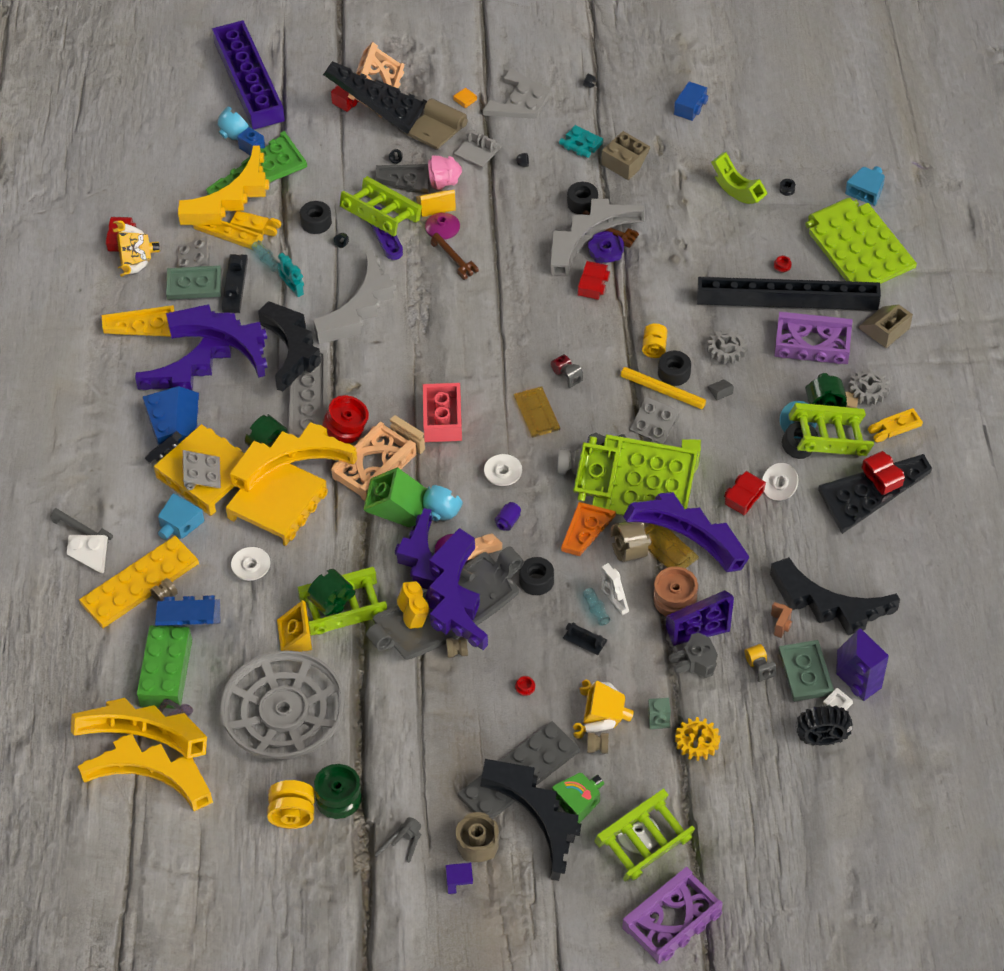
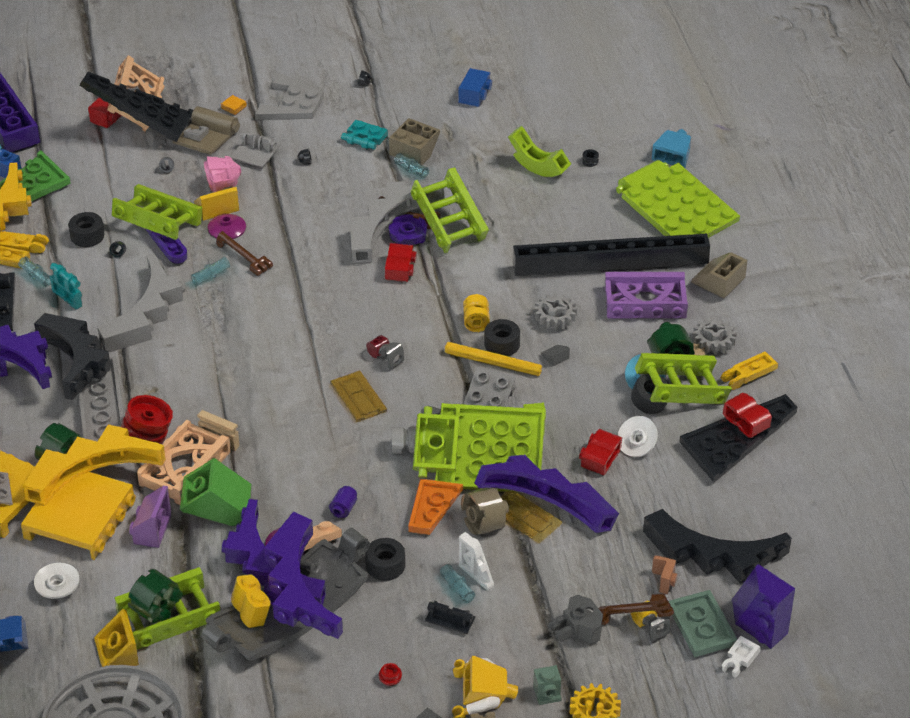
camera: 10 degrees left, 10 degrees down
(338, 514) = (152, 519): none -> medium lavender slope
(409, 177) = (179, 182): dark grey wing -> none
(421, 271) = (210, 271): none -> clear light blue pin
(426, 127) = (196, 134): none -> light grey tile
(441, 503) = (270, 494): medium azure cylinder -> none
(442, 412) = (254, 404): coral brick -> none
(456, 646) = (306, 641): dark tan wheel -> none
(503, 464) = (330, 455): white dish -> none
(580, 196) = (373, 184): black tyre -> none
(619, 179) = (411, 165): none -> clear light blue pin
(657, 220) = (462, 198): none -> lime fence
(674, 590) = (543, 557): nougat wheel -> none
(708, 617) = (585, 576): dark purple wedge -> none
(766, 650) = (657, 603): none -> reddish brown hinge
(782, 264) = (599, 229): red plate -> none
(824, 725) = (734, 675): black gear -> none

